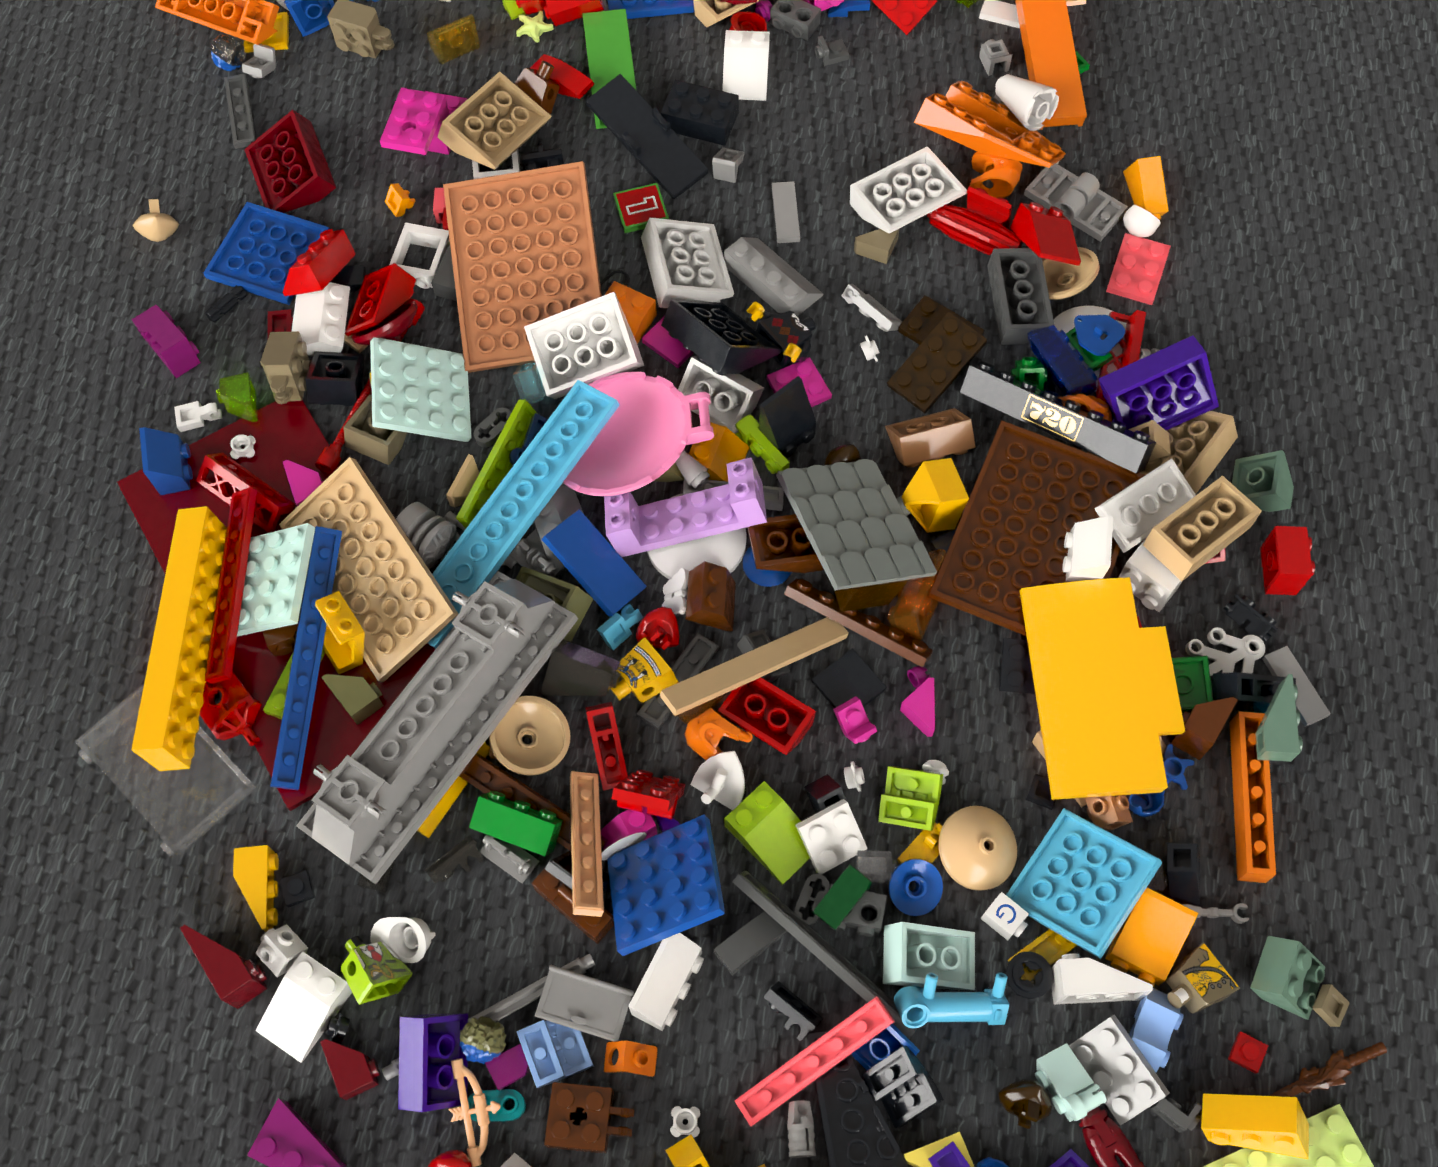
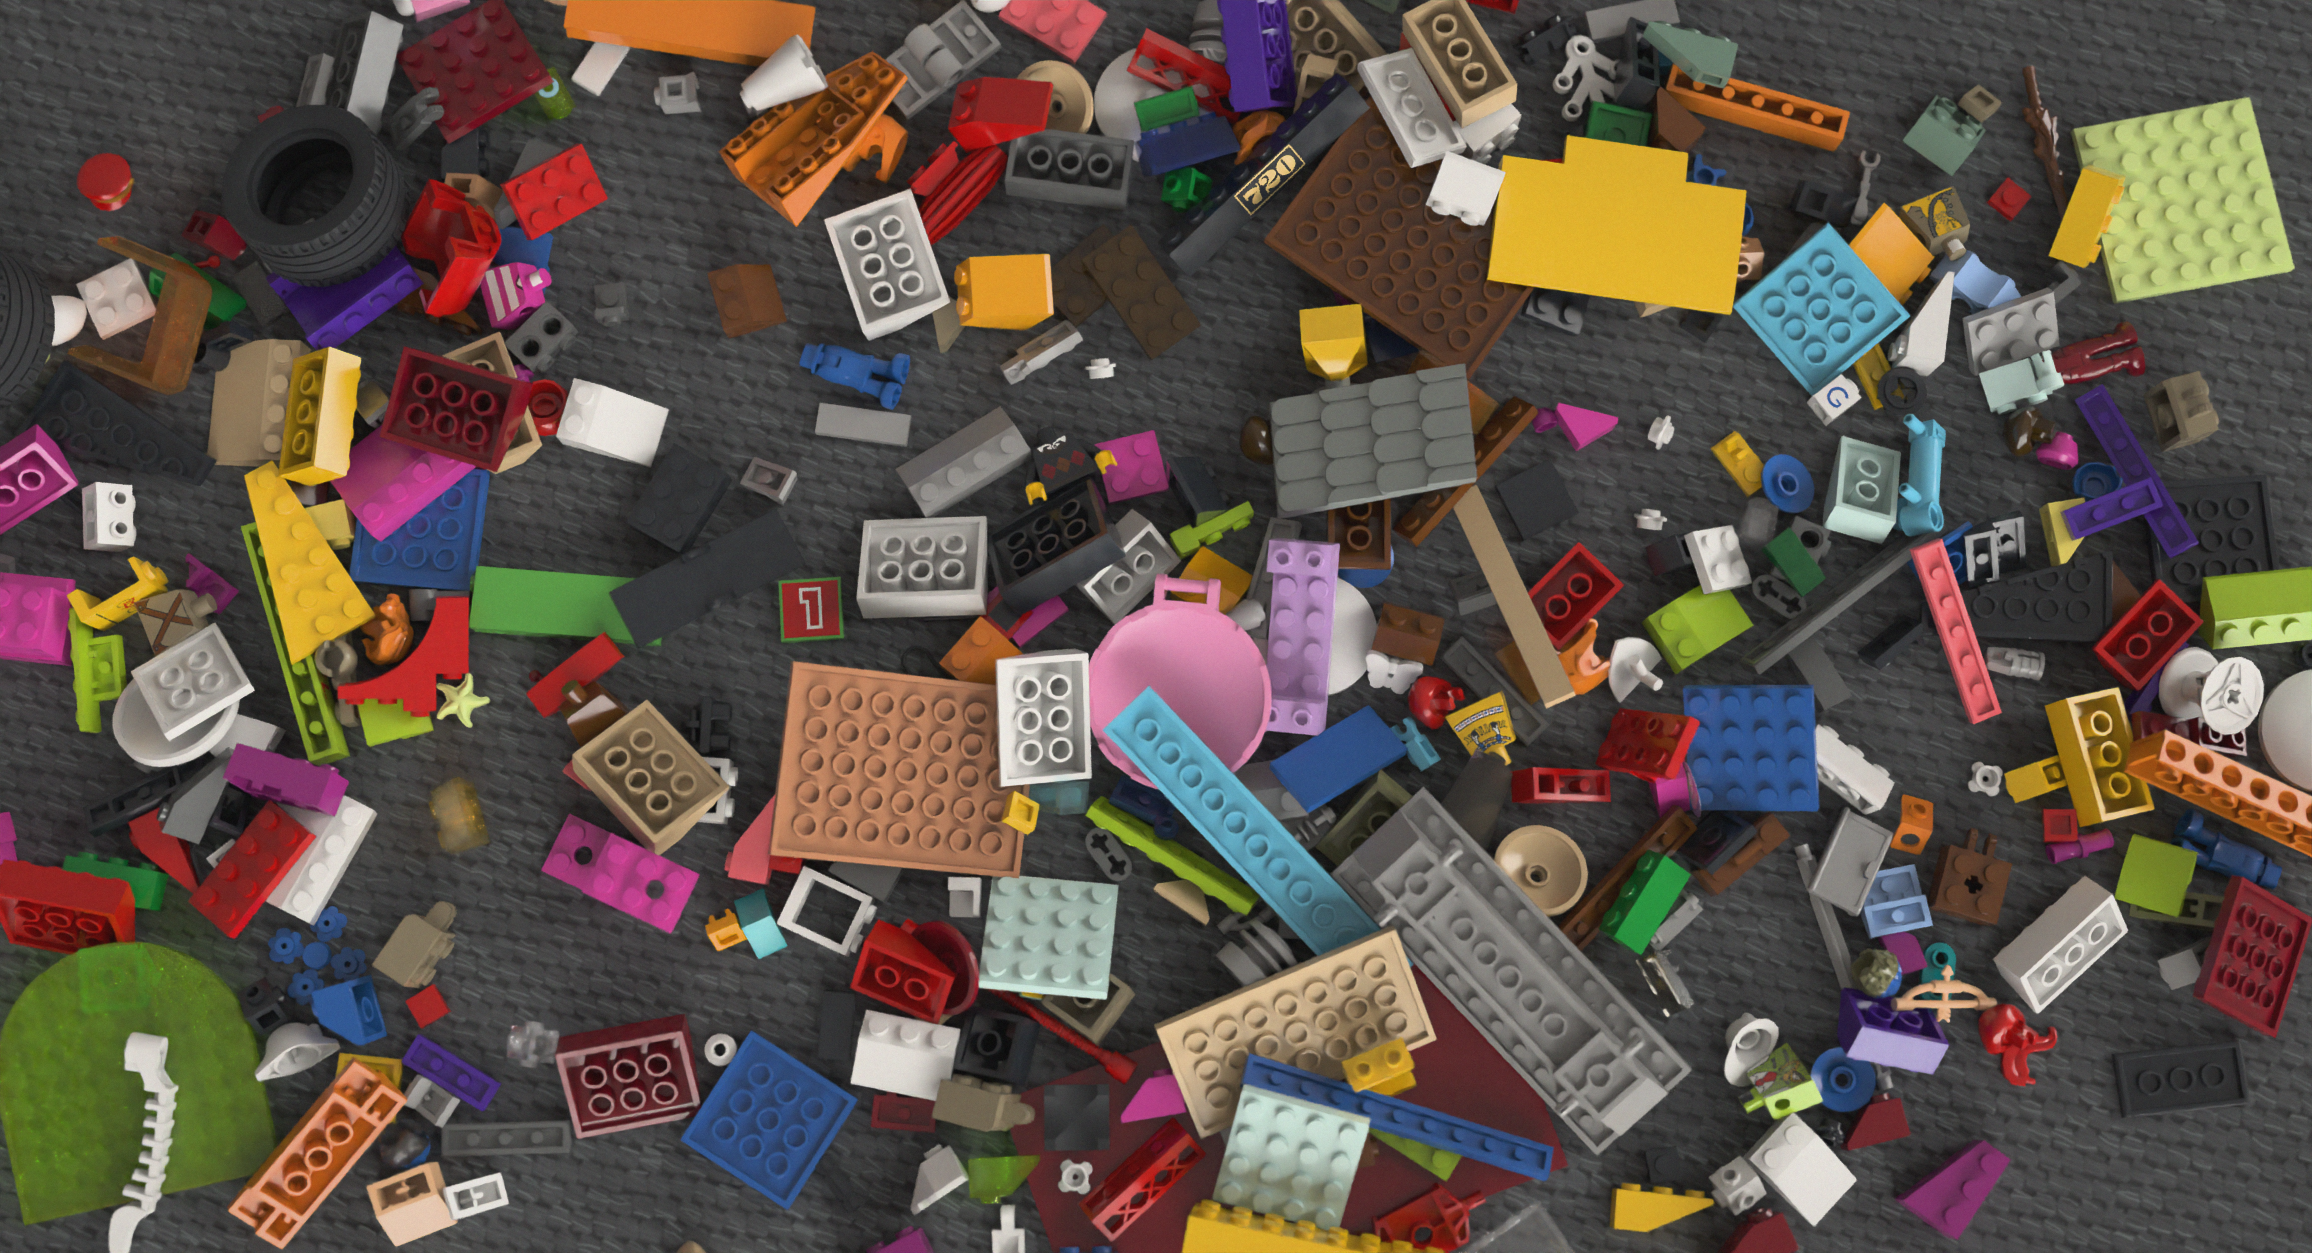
camera: 80 degrees left, 15 degrees up
(190, 64) = (411, 1203): none -> light nougat slope
(196, 95) = (475, 1196): none -> white slope
(231, 586) = (1283, 1200): red tile -> none
(234, 358) = (937, 1177): none -> white slope
(280, 71) = (451, 1072): none -> dark purple plate
(286, 436) = (1076, 1117): none -> black brick
(295, 103) = (532, 1044): none -> clear brick
(319, 263) = (828, 1045): red slope -> none
(320, 215) = (731, 1049): none -> white plate
(324, 51) = (427, 1006): none -> red tile
(355, 695) = (1451, 1068): olive slope -> none
(373, 1023) = (1859, 1079): none -> blue dish
(408, 213) = (760, 924): none -> teal slope
(449, 340) = (965, 896): none -> white panel
(510, 352) = (1020, 812): none -> yellow plate
(586, 844) = (1685, 825): light nougat tile -> none
(654, 324) = (998, 615): none -> black piece
(824, 199) = (856, 370): none -> blue piece
(854, 721) = (1589, 502): dark pink bracket -> none
(857, 122) = (746, 298): none -> reddish brown slope
(907, 264) = (1004, 291): none -> light orange slope
(910, 798) = (1687, 464): lime slope -> none
(931, 437) = (1239, 326): medium nougat slope -> none
(964, 850) = (1747, 415): tan dish -> none
(1015, 1139) = (2059, 454): none -> dark pink cone
(1093, 327) = (1151, 98): blue piece -> none

